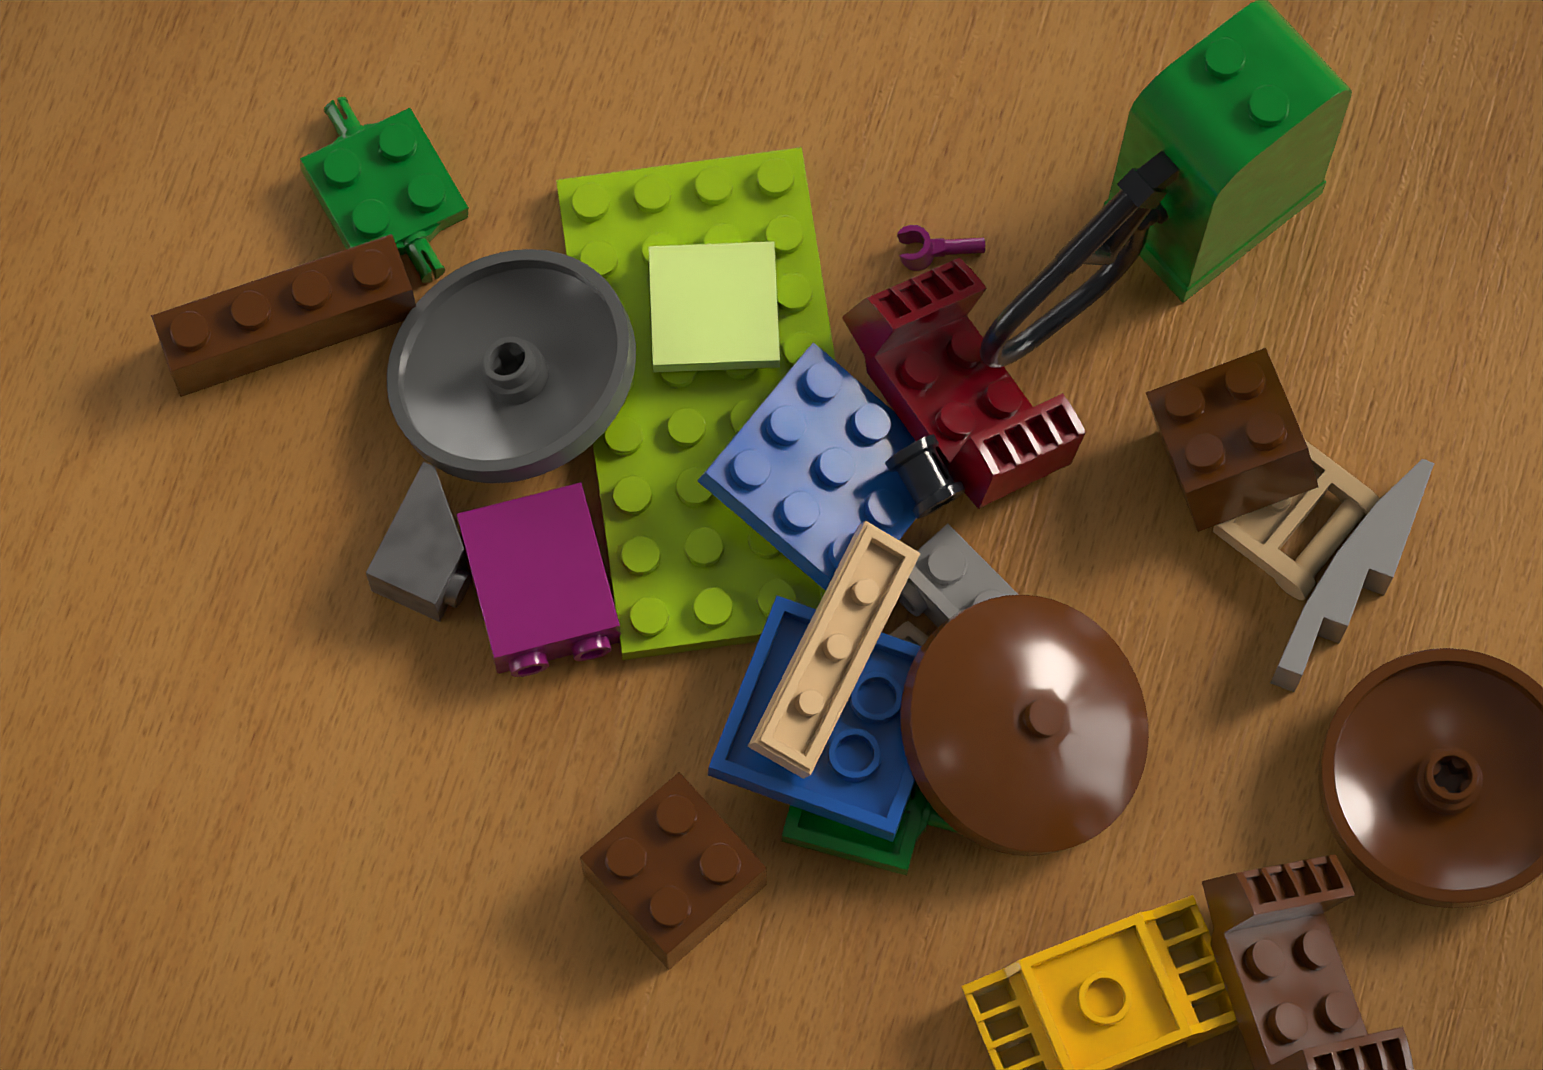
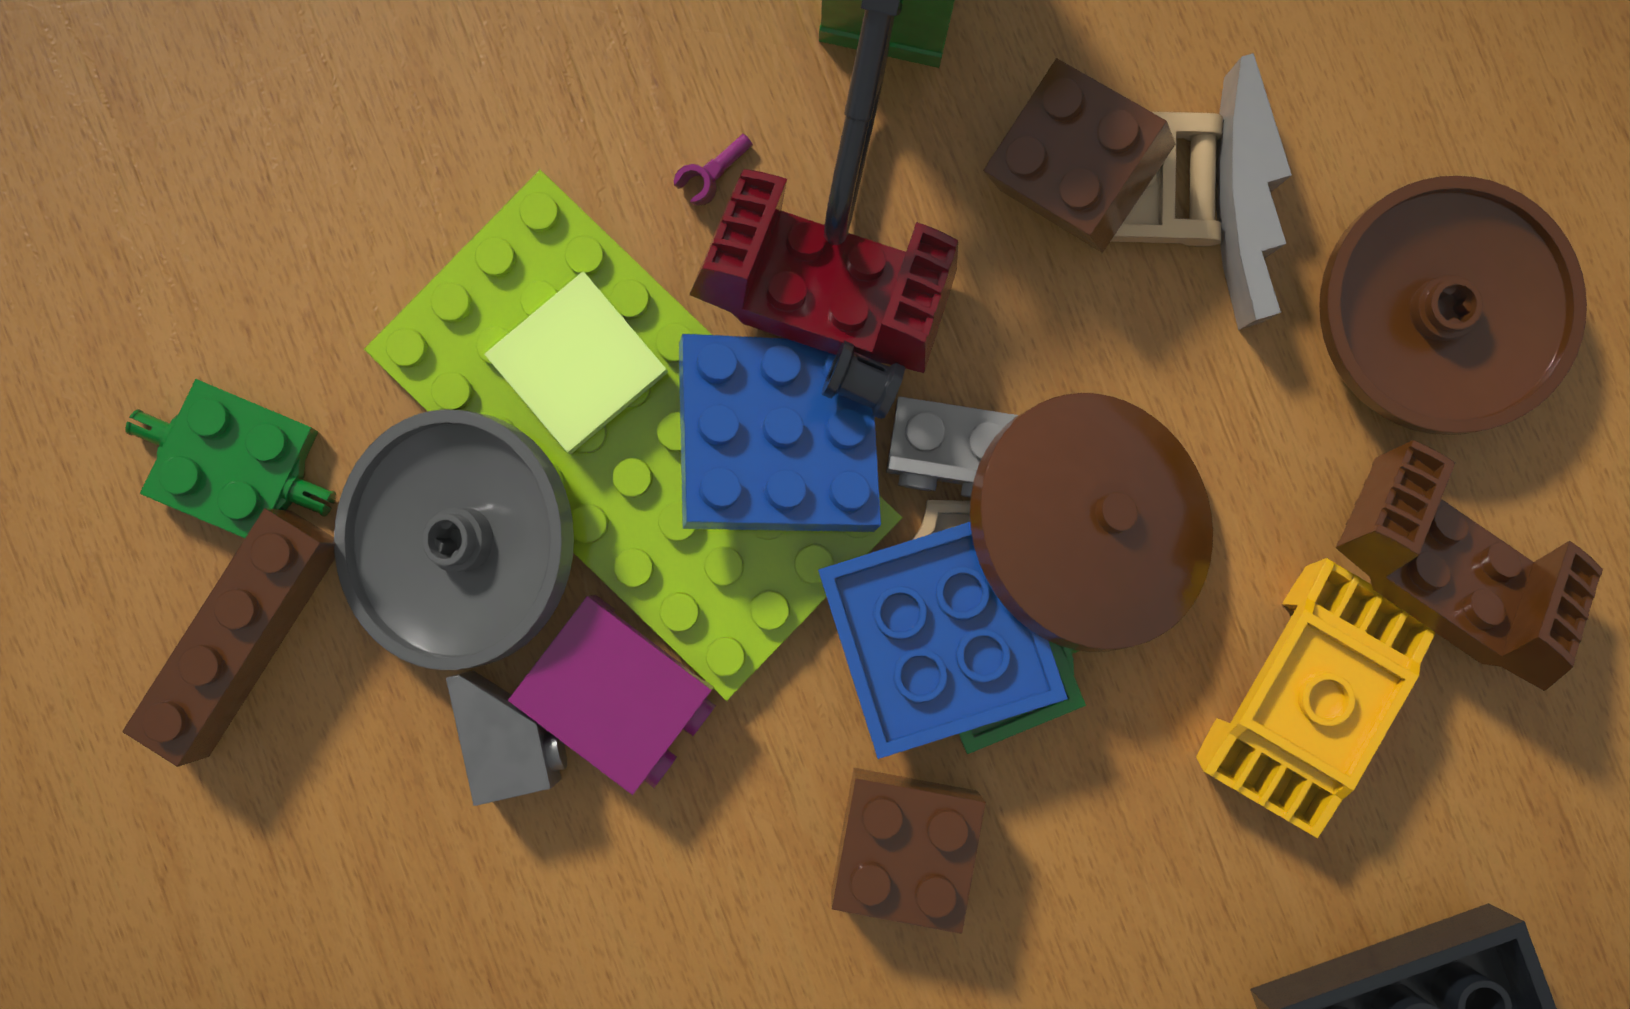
camera: 35 degrees left, 15 degrees up
(834, 650) = (904, 586): tan tile -> none

